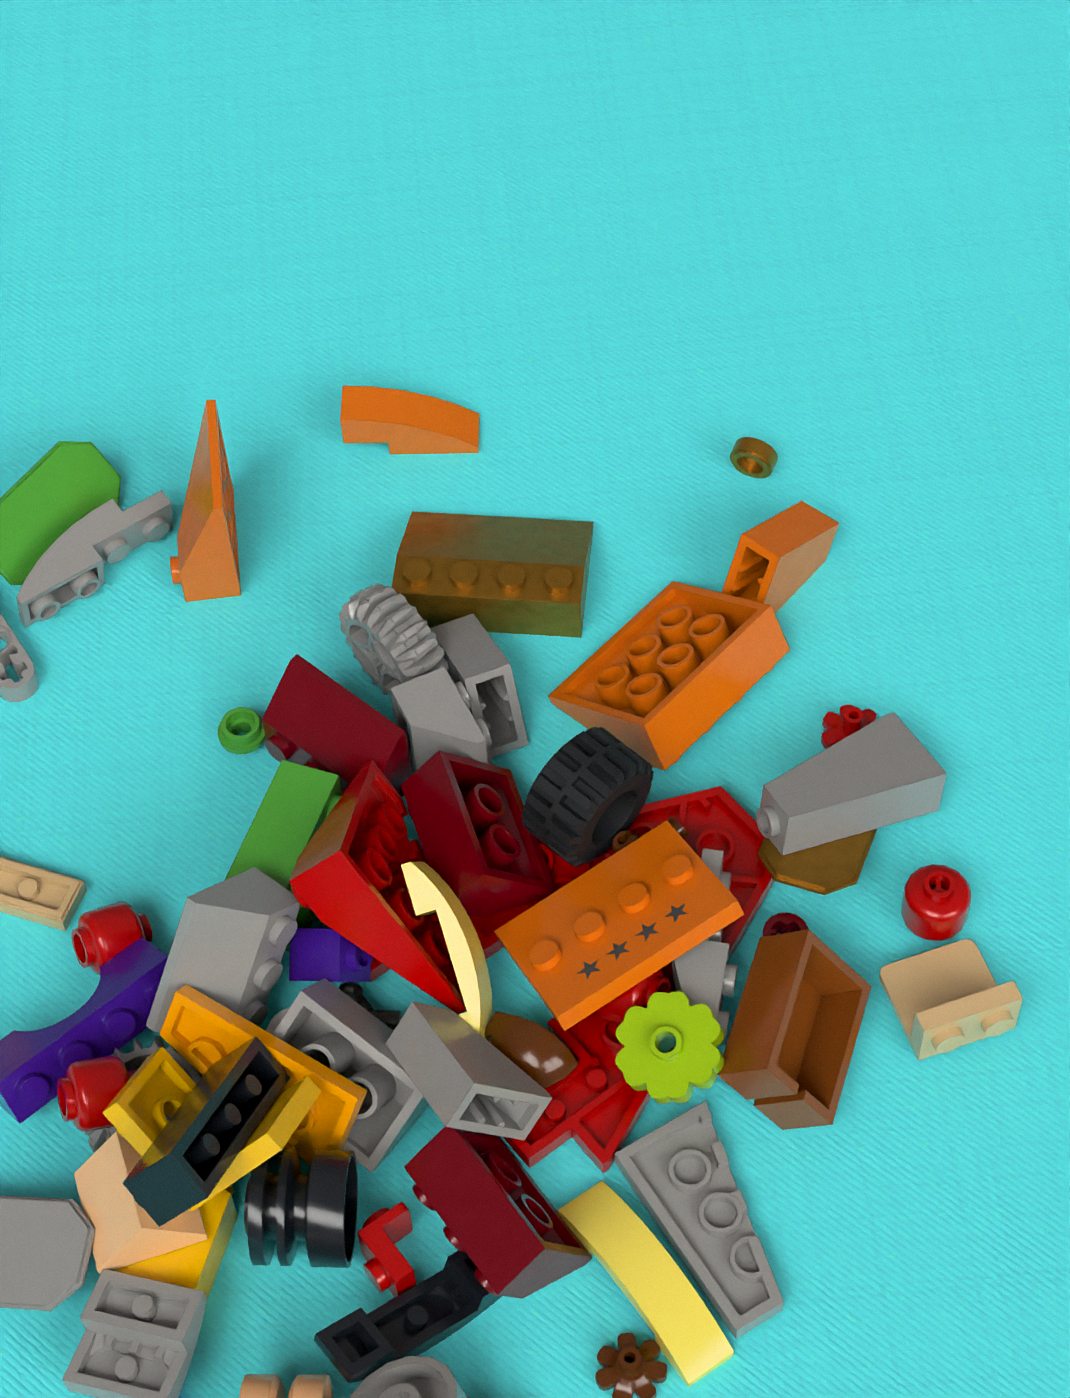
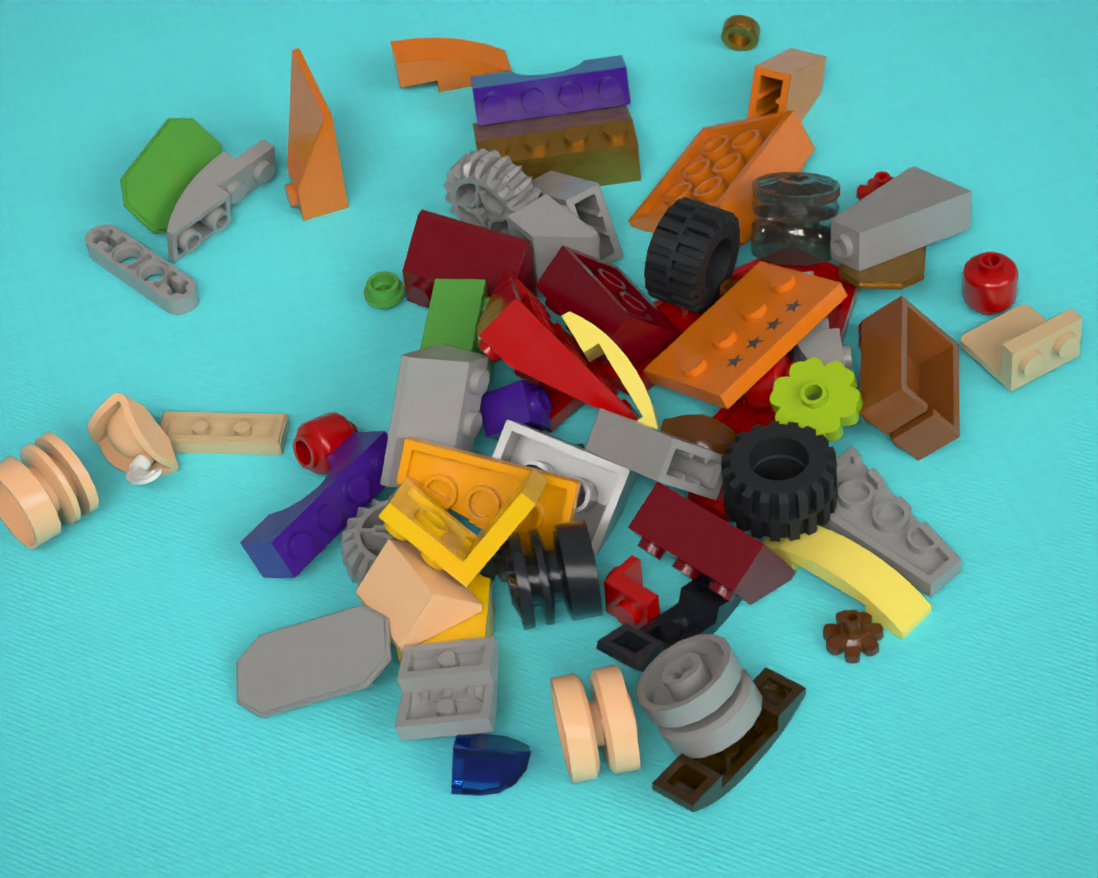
camera: 10 degrees left, 10 degrees down
(90, 1089) = (356, 529): red head -> none
(206, 1132) = (466, 515): brick -> none
(557, 498) = (518, 97): none -> dark purple arch
(597, 1105) = (779, 480): none -> black tyre
(727, 756) = (793, 217): none -> clear smoke wheel

